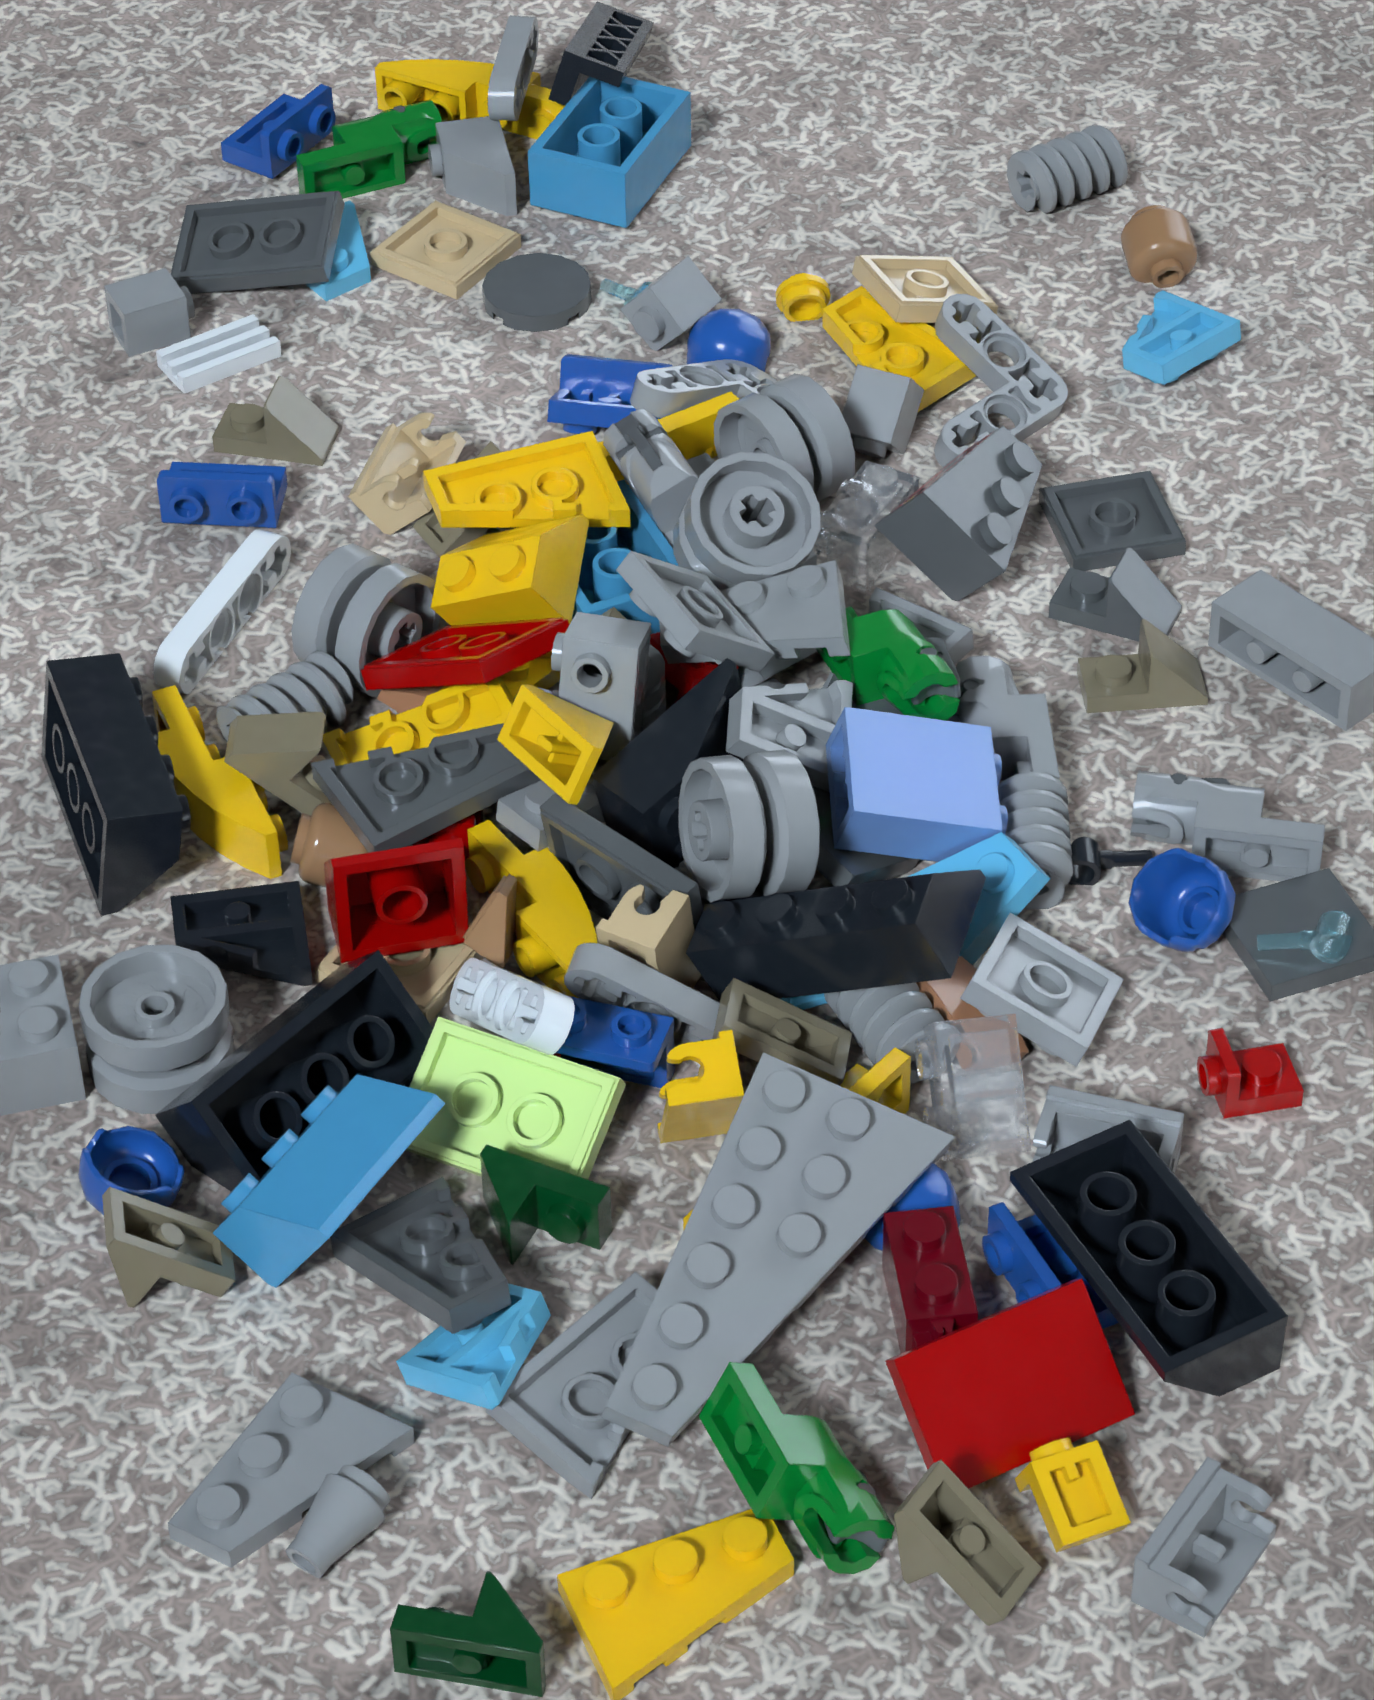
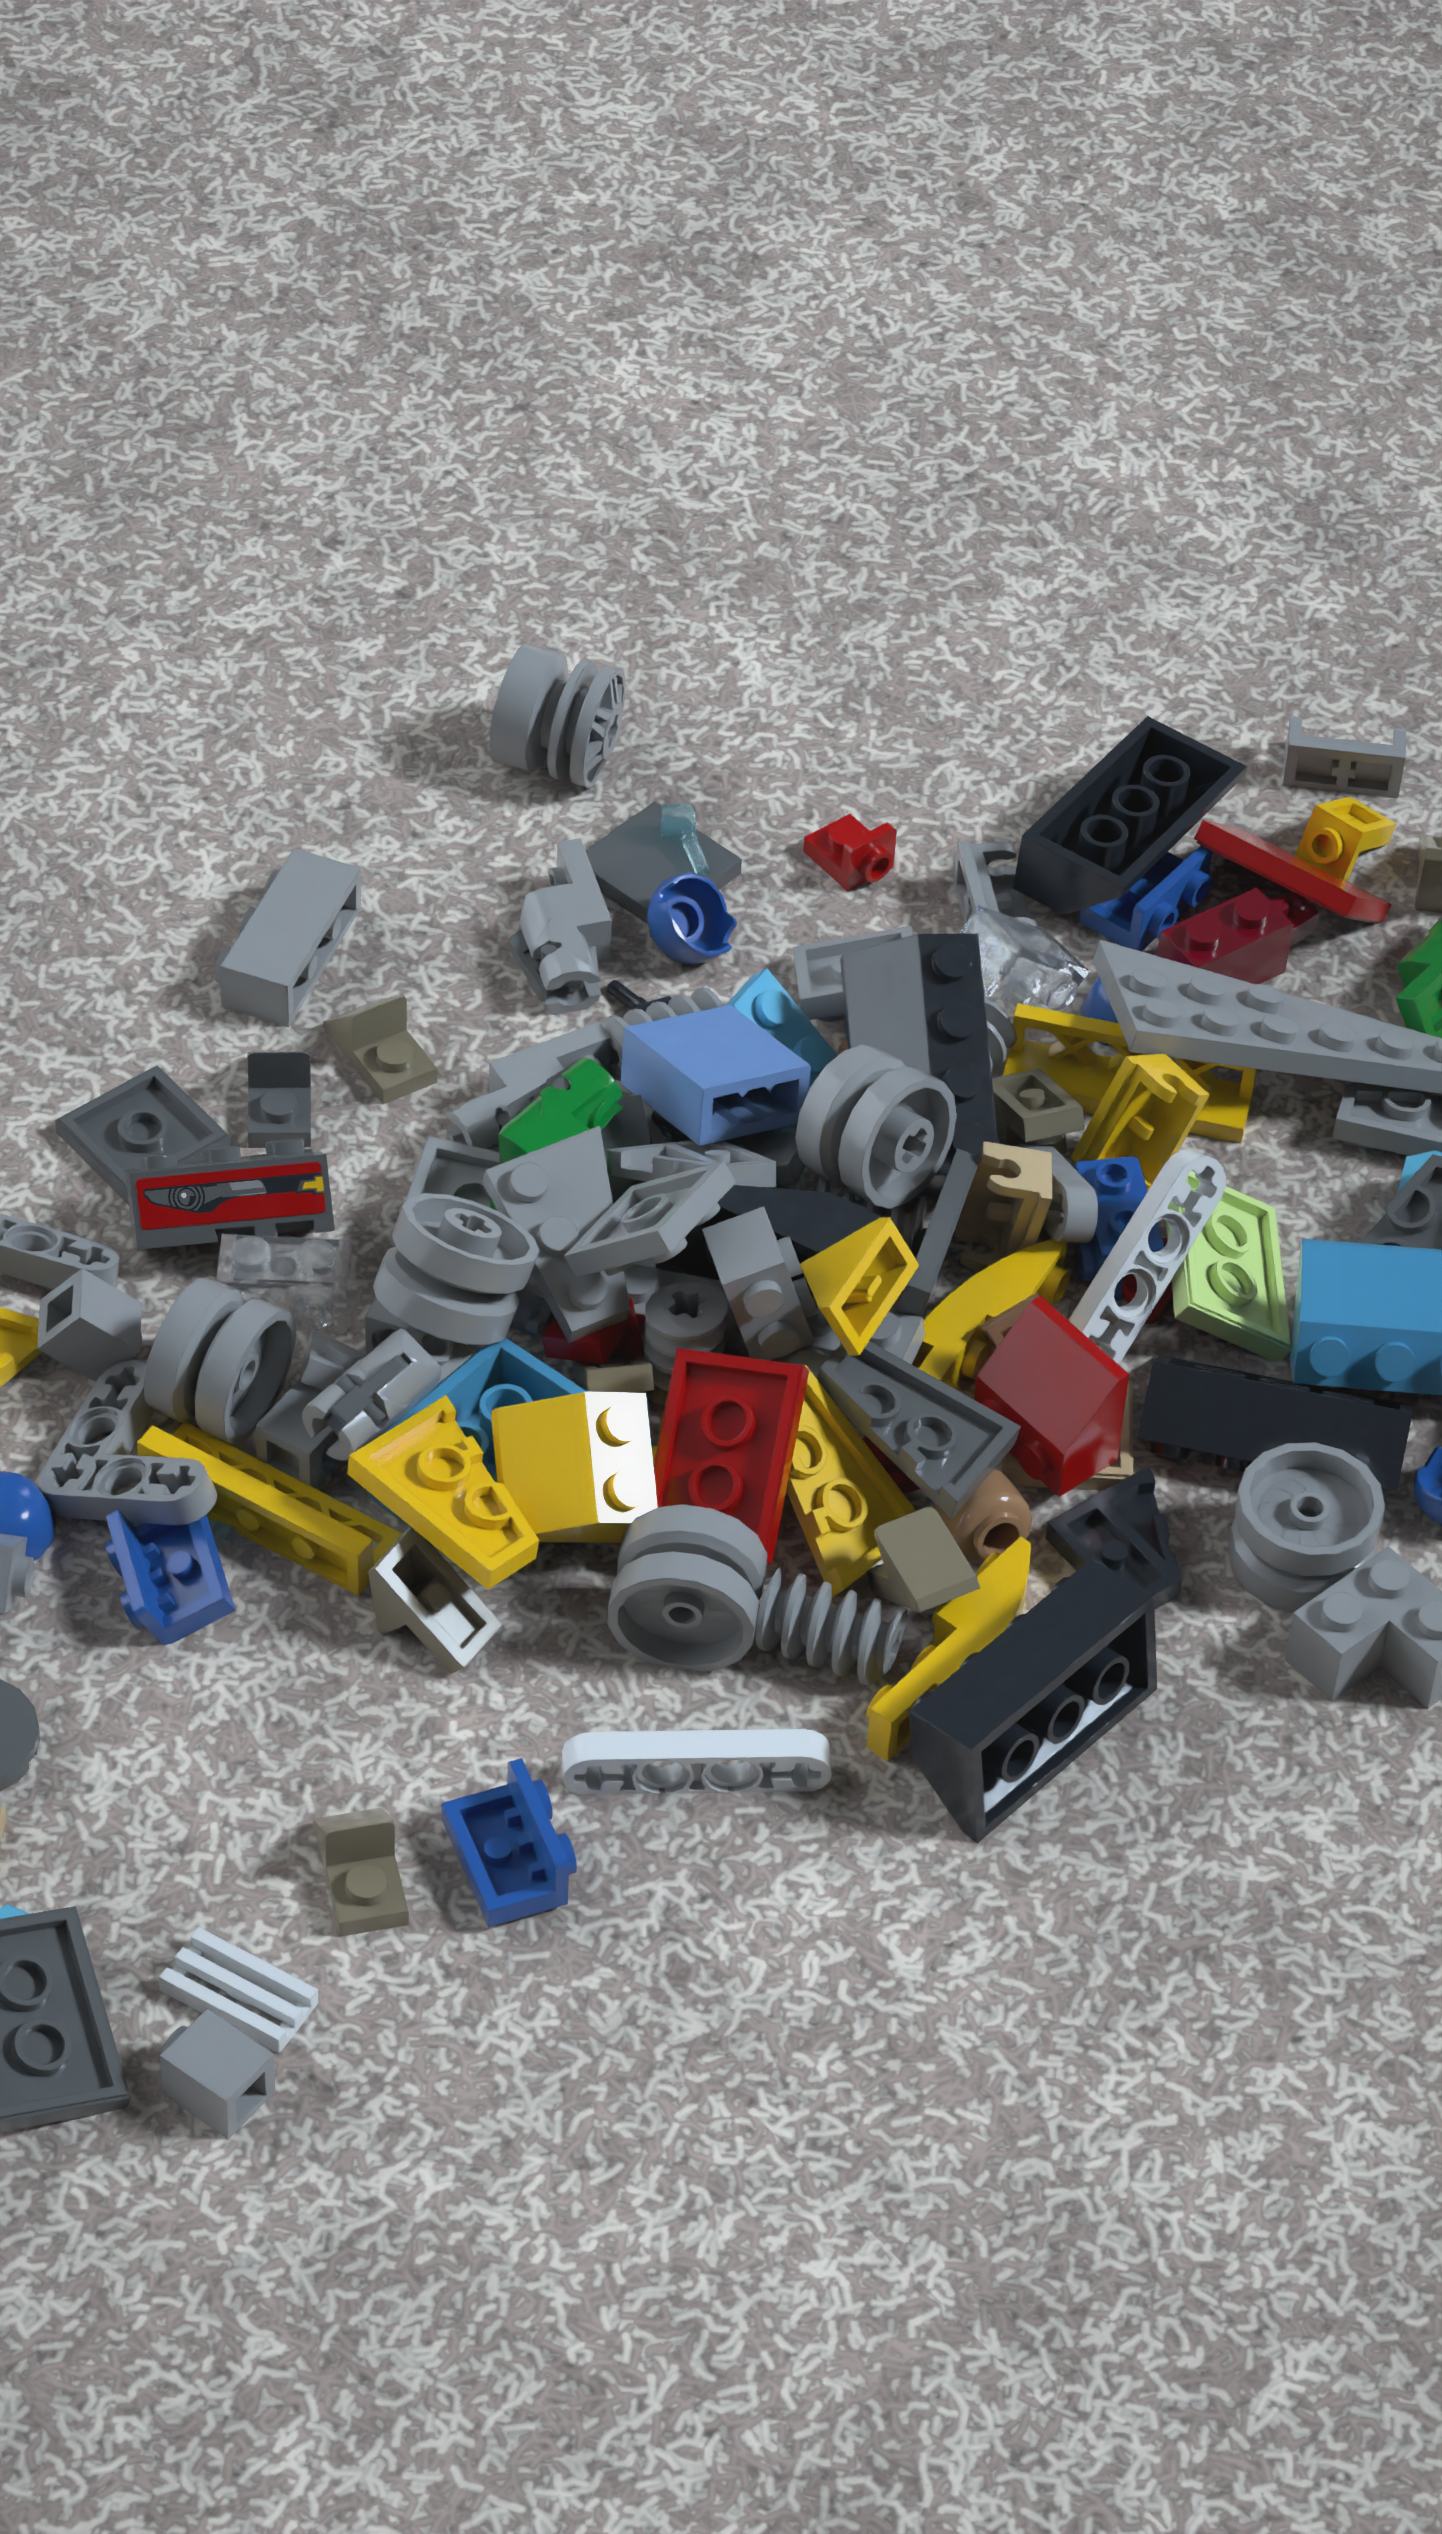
camera: 120 degrees left, 5 degrees up
(392, 480) = (398, 1683): tan hinge -> none
(535, 1196) = (1302, 1211): dark green slope -> none

